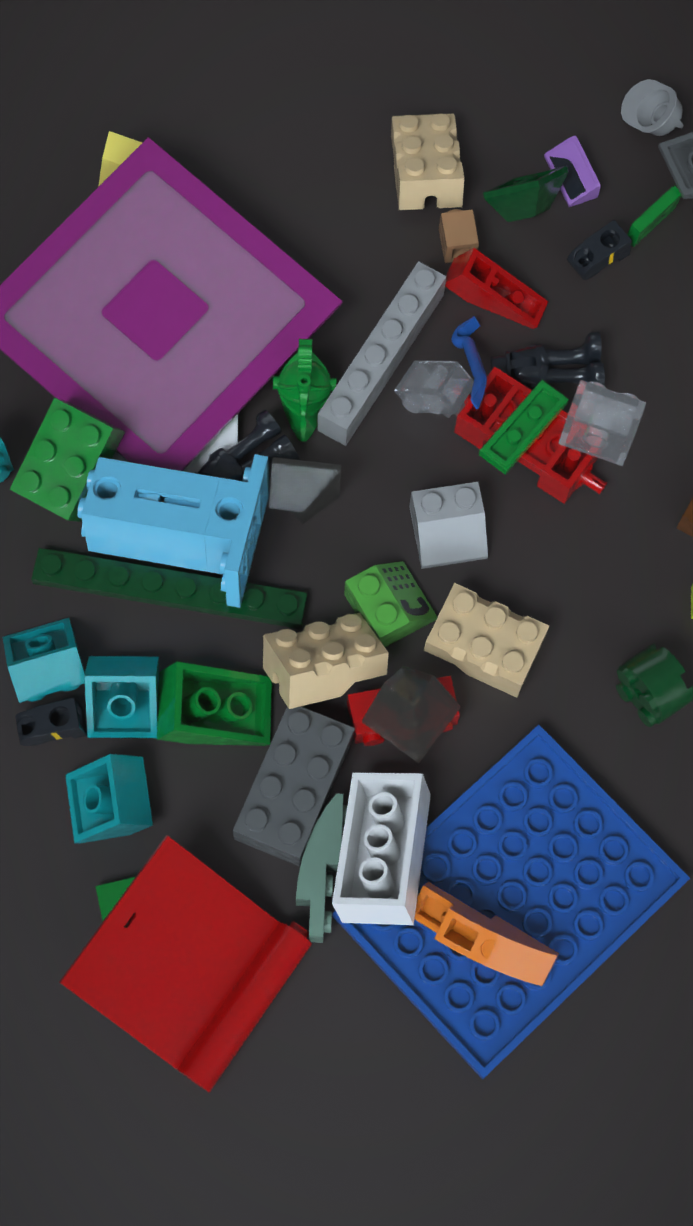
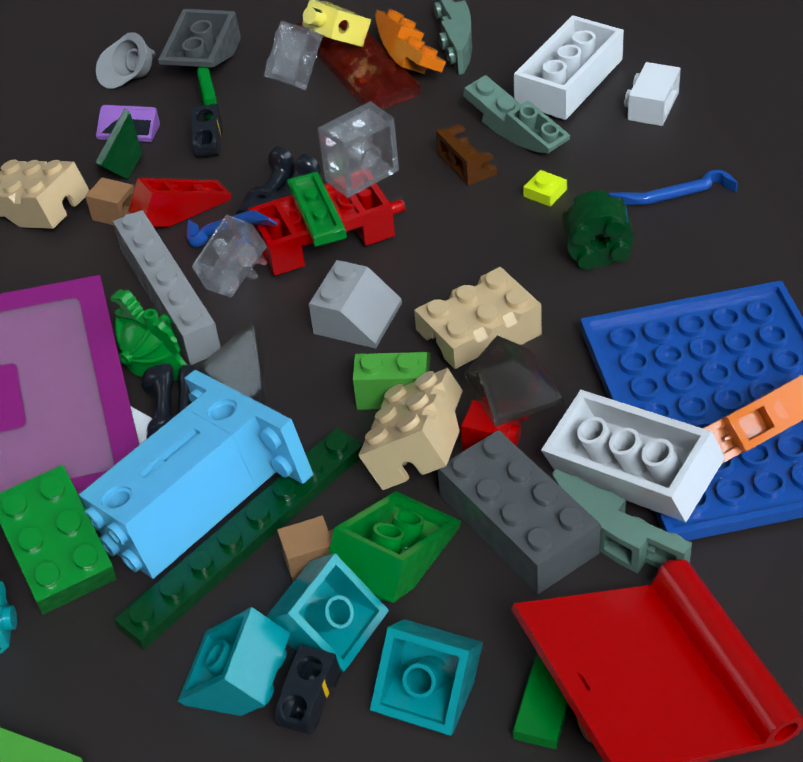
camera: 50 degrees left, 25 degrees down
(172, 644) = (304, 543): none -> medium nougat brick

